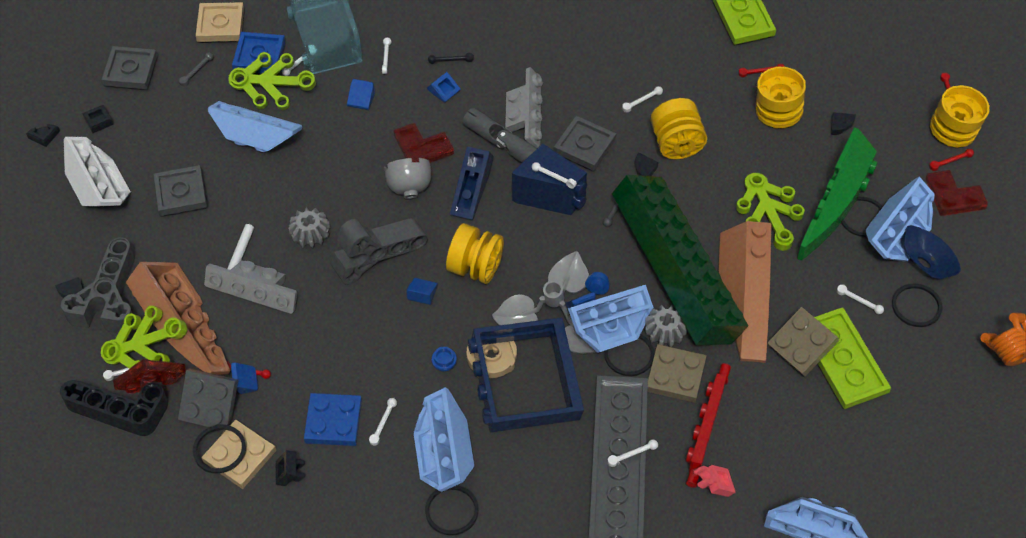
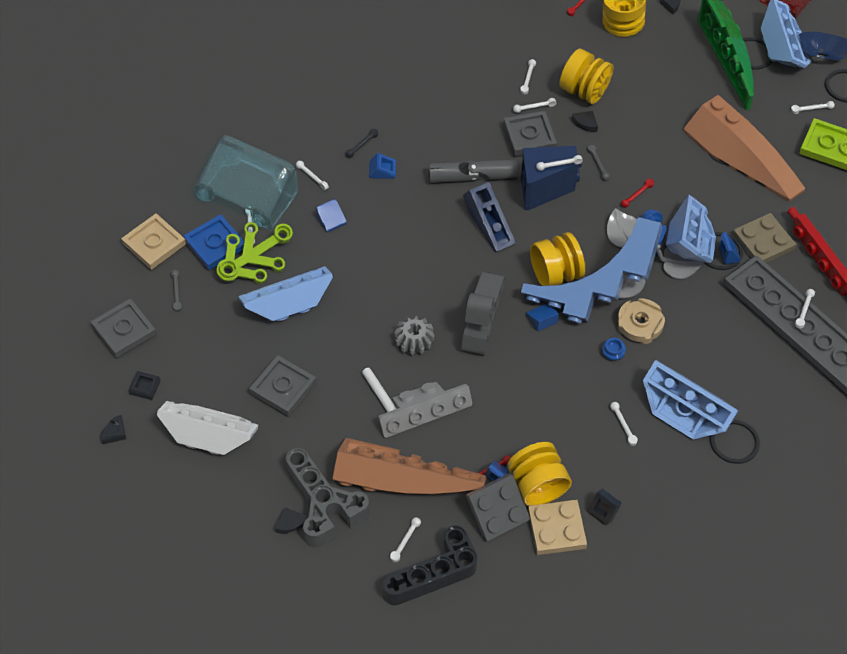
camera: 45 degrees left, 0 degrees up
(141, 338) = (400, 510): lime plant -> none
(146, 372) = (440, 522): clear red plate -> none
(224, 469) = (542, 553): black piece -> none
(262, 400) = (539, 473): none -> yellow wheel
(333, 419) = (590, 450): blue plate -> none
(408, 177) = (445, 246): light grey cylinder -> none
(416, 147) = (422, 223): clear red plate -> none
(515, 296) = (578, 296): none -> medium blue arch
(521, 331) = (699, 288): dark blue window -> none
(524, 108) = (458, 141): light grey bracket -> none
(632, 356) = (728, 249): none -> blue slope
(634, 132) = (551, 102): none -> white hinge
(636, 255) = (648, 184): none -> red hinge
(665, 326) = (726, 213): light grey gear -> none
(679, 260) = (689, 161): dark green brick -> none
(770, 207) = (672, 81): lime plant -> none
(803, 341) = (818, 157): dark tan plate -> none

